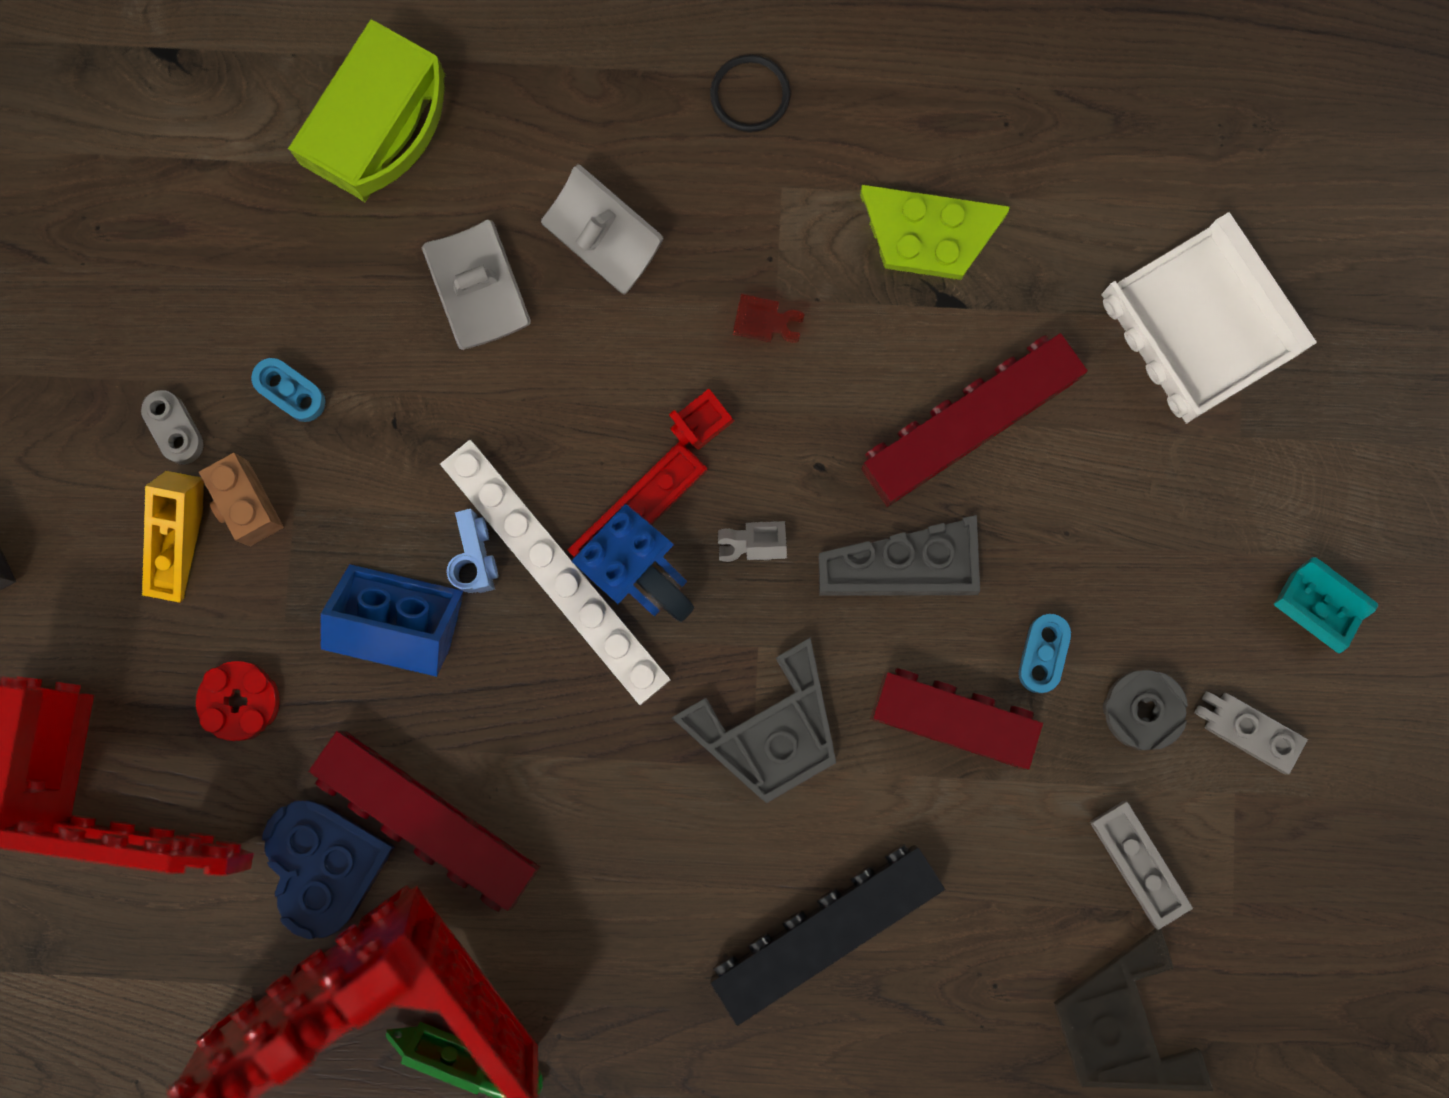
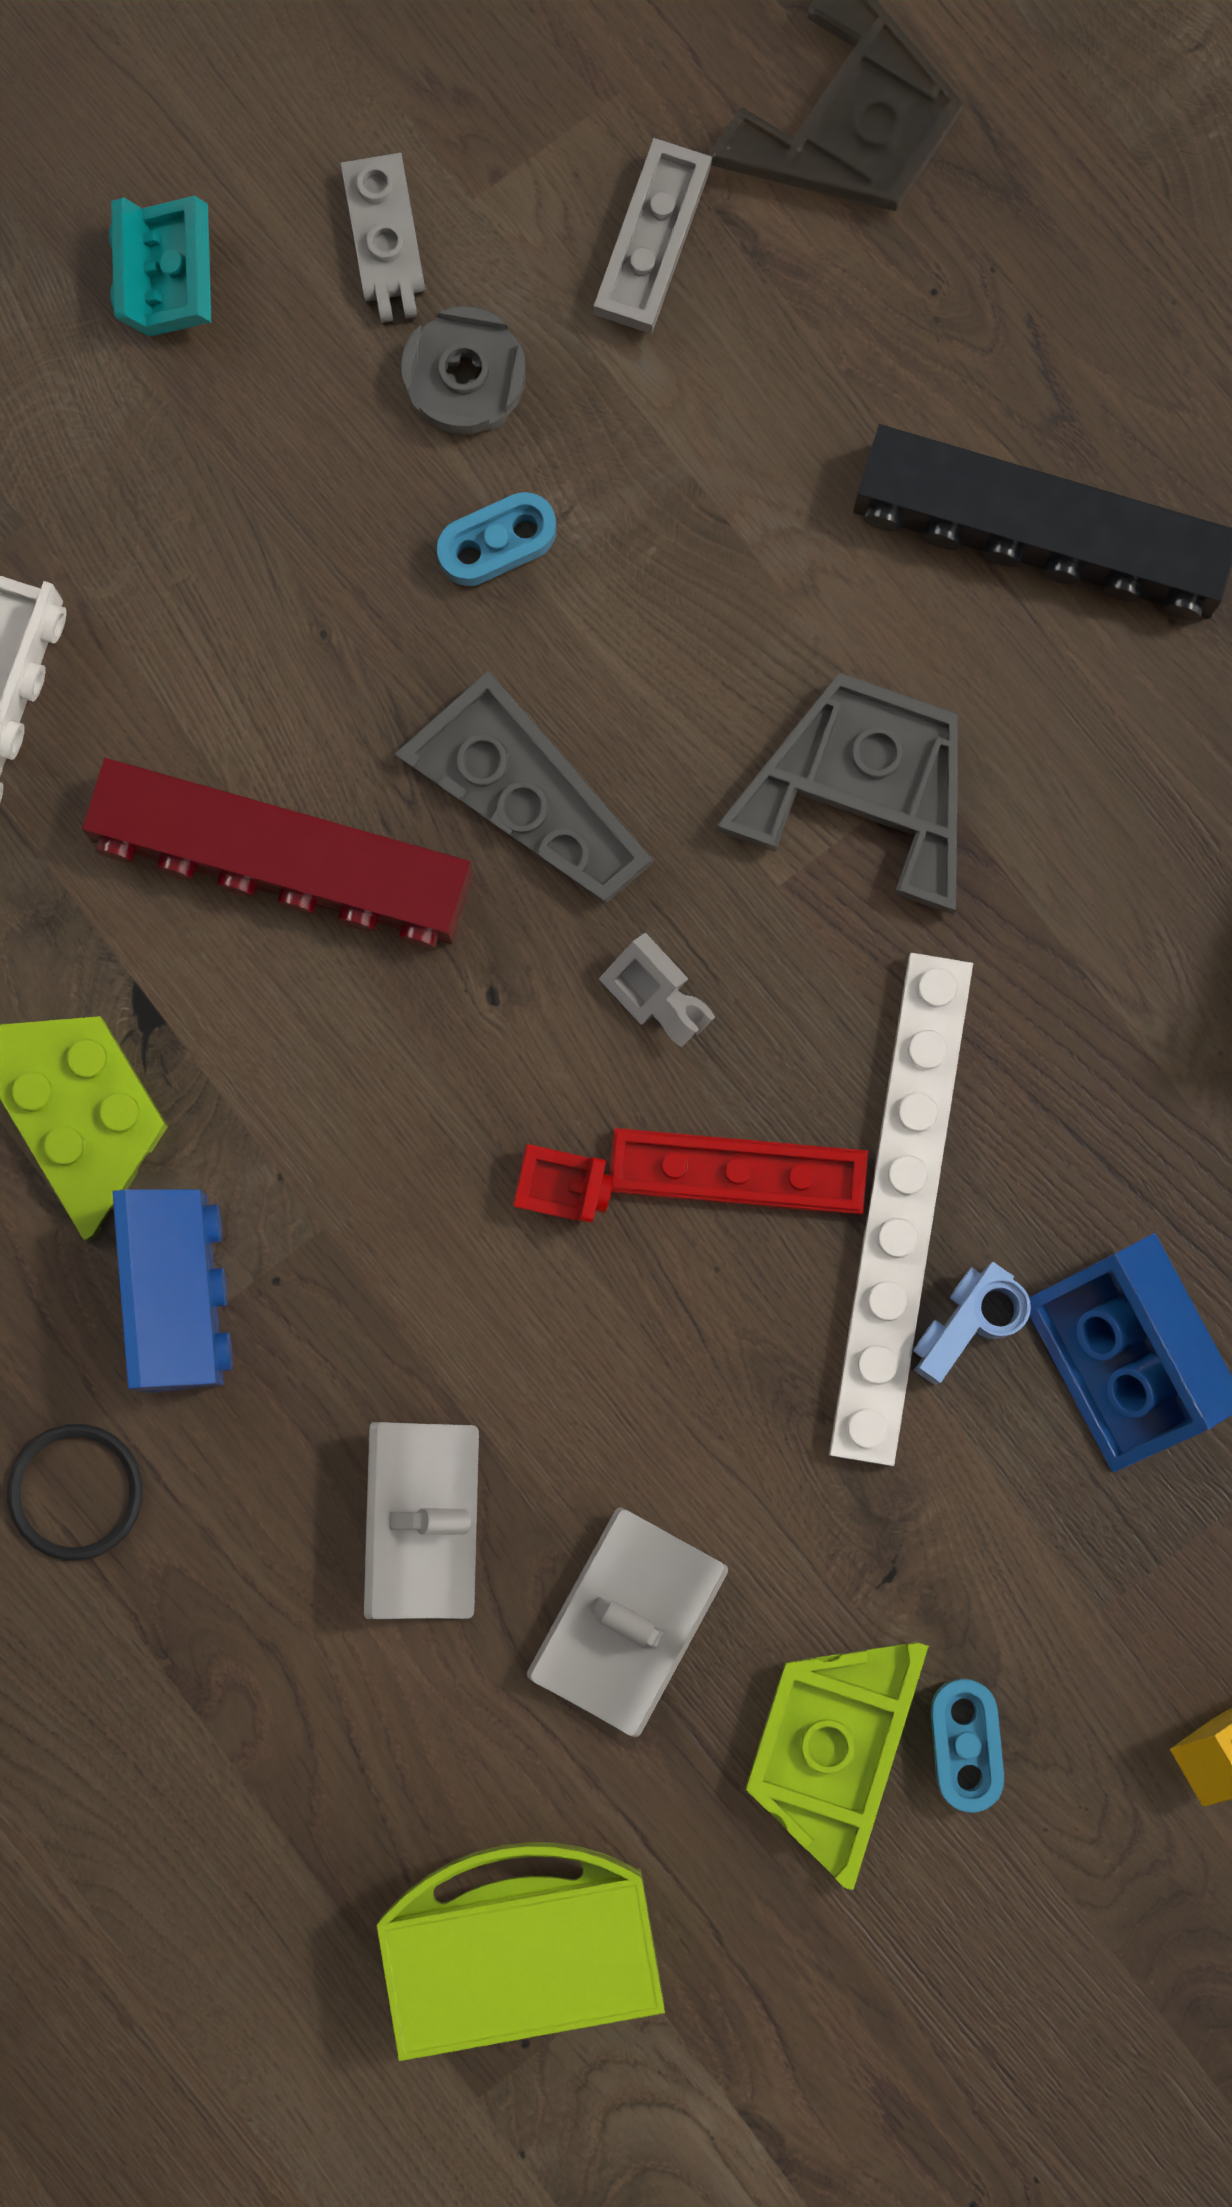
camera: 135 degrees left, 0 degrees up
(171, 425) = (1136, 1856): light grey plate -> none
(240, 500) = (1156, 1674): medium nougat brick -> none
(340, 330) = (834, 1747): none -> lime wing
(625, 555) = (810, 1124): blue plate -> none
(759, 318) = (368, 1220): clear red plate -> none
(803, 198) = (171, 1289): none -> blue slope
(956, 720) = (667, 576): dark red brick -> none

